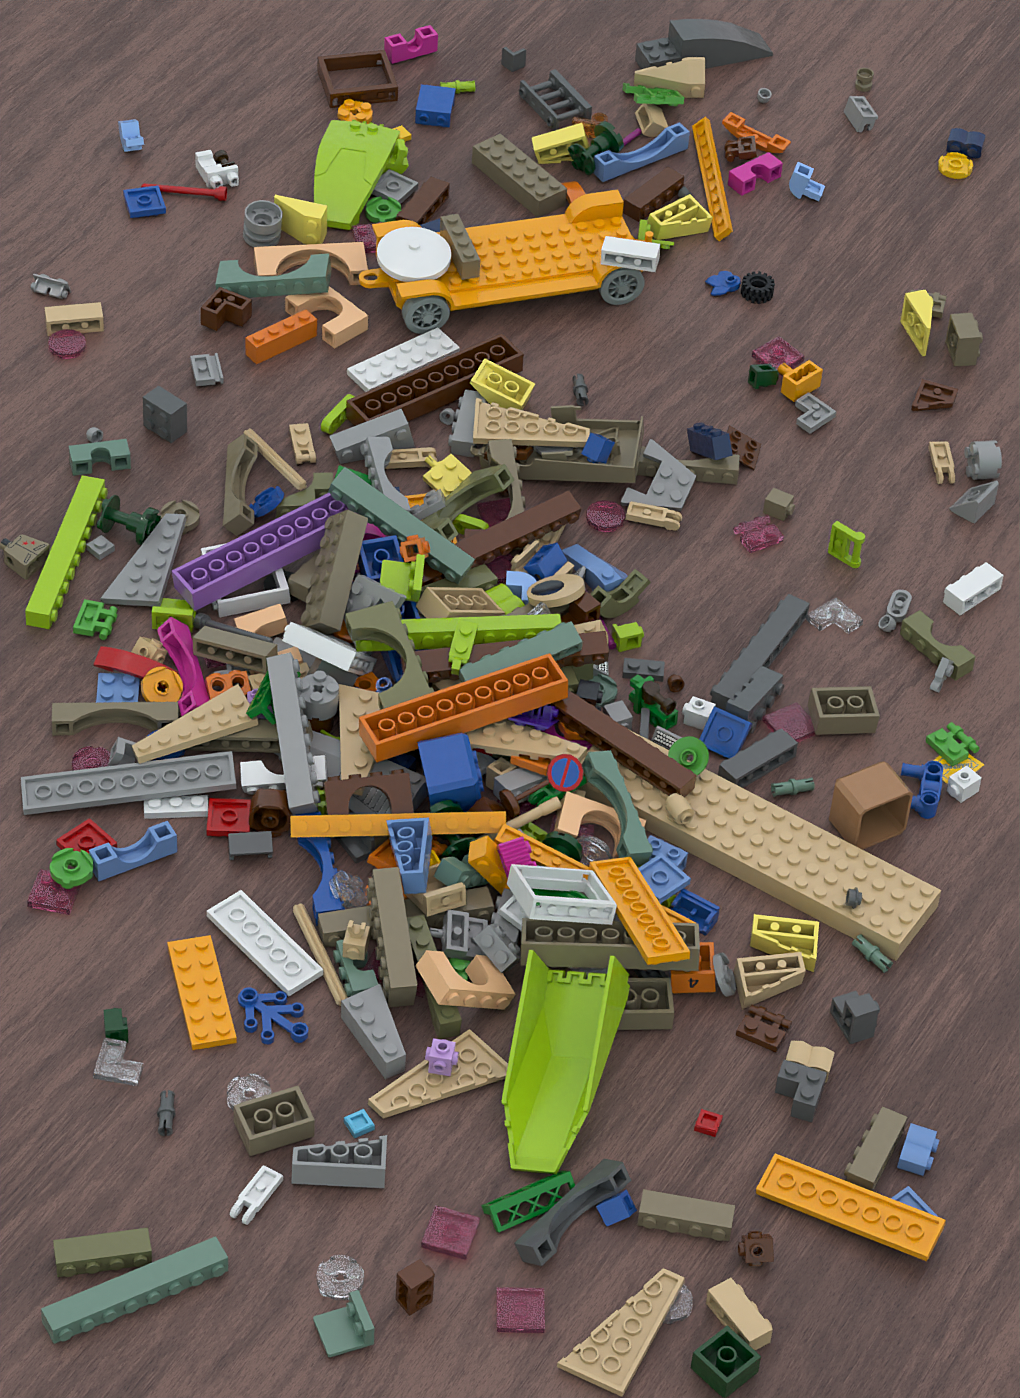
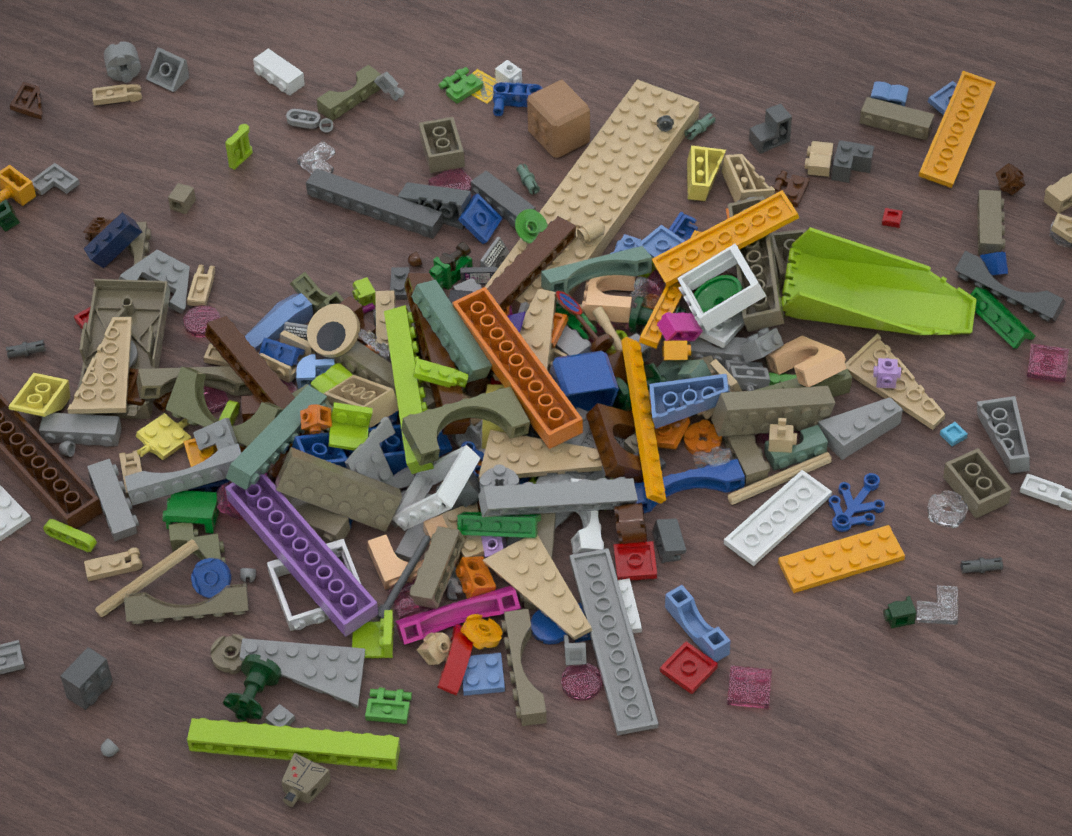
camera: 90 degrees left, 5 degrees up
(71, 877) = (728, 677): bright green plate -> none
(113, 452) = (150, 749): sand green arch -> none
(597, 448) = (139, 310): blue brick -> none
(697, 712) = (452, 237): white brick -> none
(760, 538) = (223, 213): clear pink plate -> none

